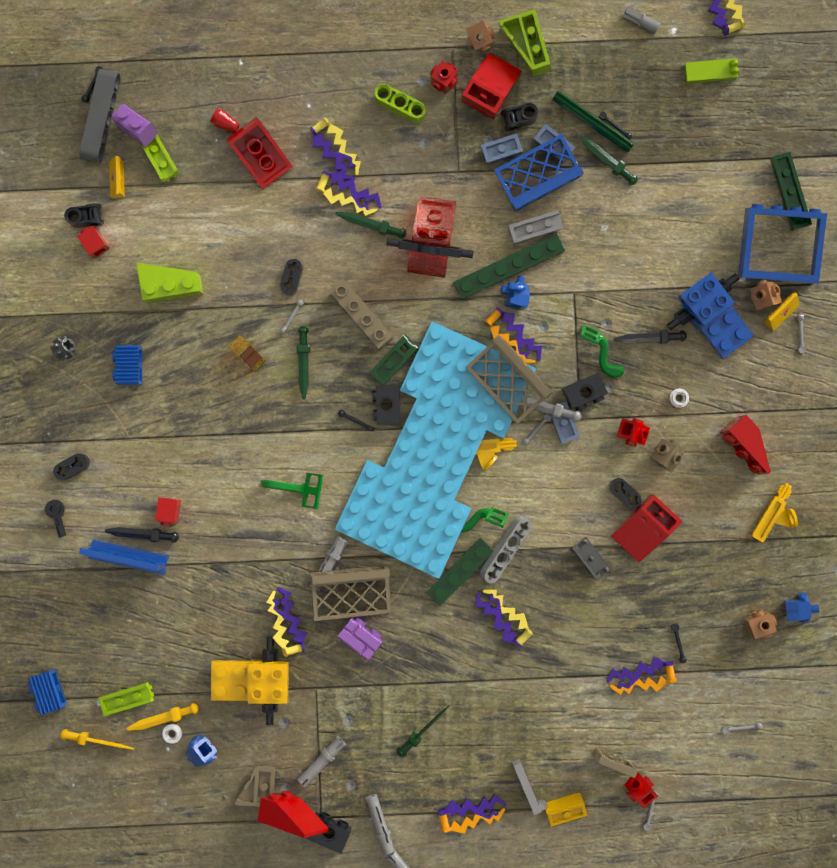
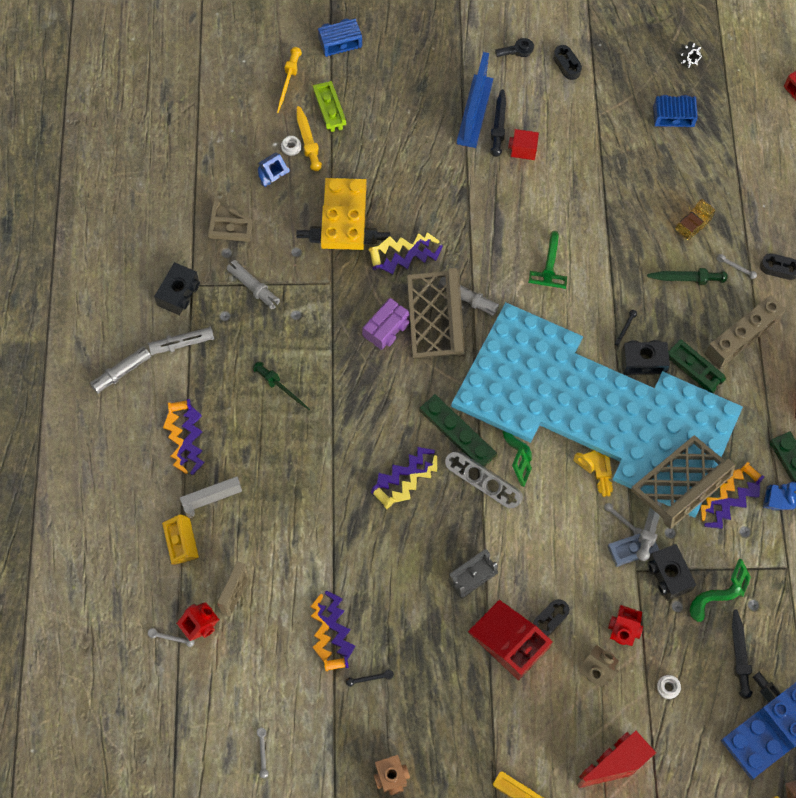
camera: 90 degrees right, 20 degrees down
(167, 283) = (764, 146): lime wedge -> none
(290, 815) = (202, 243): red slope -> none

